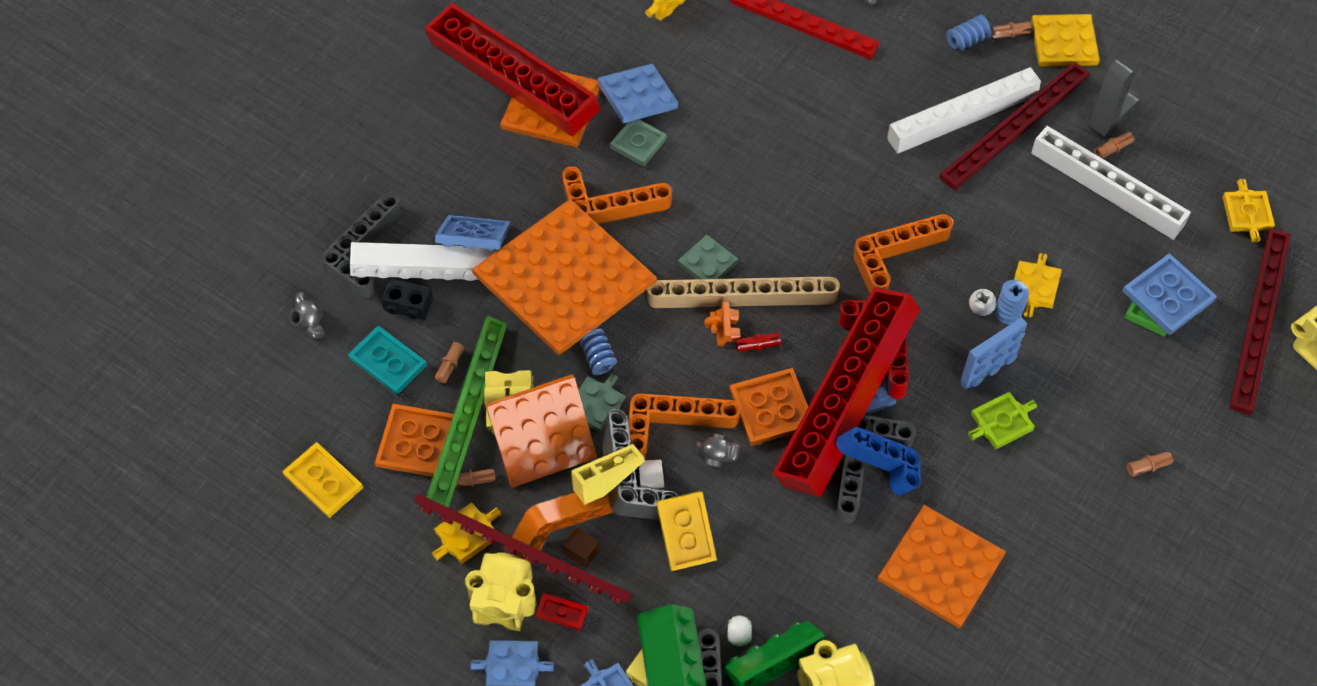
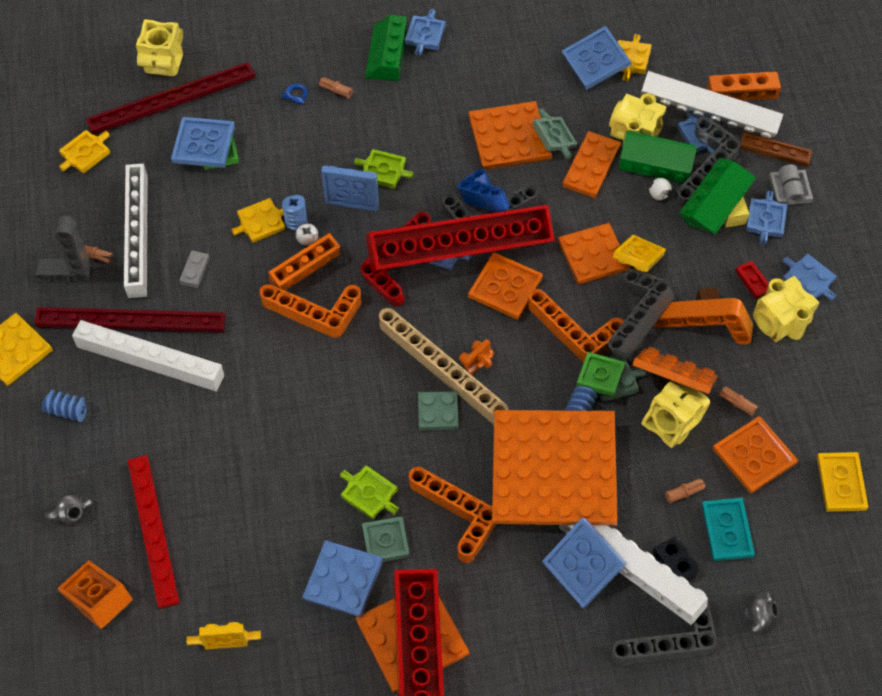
camera: 135 degrees left, 0 degrees up
(459, 542) = (772, 371): yellow plate -> none
(466, 412) = (706, 438): bright green plate -> none
(531, 554) = (758, 311): dark red plate -> none
(605, 385) = (601, 374): none -> bright green plate
(605, 473) = (665, 300): light yellow slope -> none
(651, 474) = (625, 302): white slope -> none
(687, 160) = (369, 492): none -> lime plate
(718, 450) = (570, 284): flat silver piece -> none
(737, 509) = (591, 253): none -> orange plate
(758, 342) = (467, 330): red pin -> none
(833, 603) = (591, 164): none -> orange plate
(898, 595) = (554, 133): none -> sand green plate
(948, 271) = (304, 262): none -> orange brick
(1011, 29) = (32, 384): nougat axle -> none
(1028, 203) = (194, 269): none -> light grey plate
(1155, 605) = (425, 32): none -> medium blue plate
(1160, 550) = (387, 49): none -> green slope
(1180, 418) = (298, 100): none -> blue piece

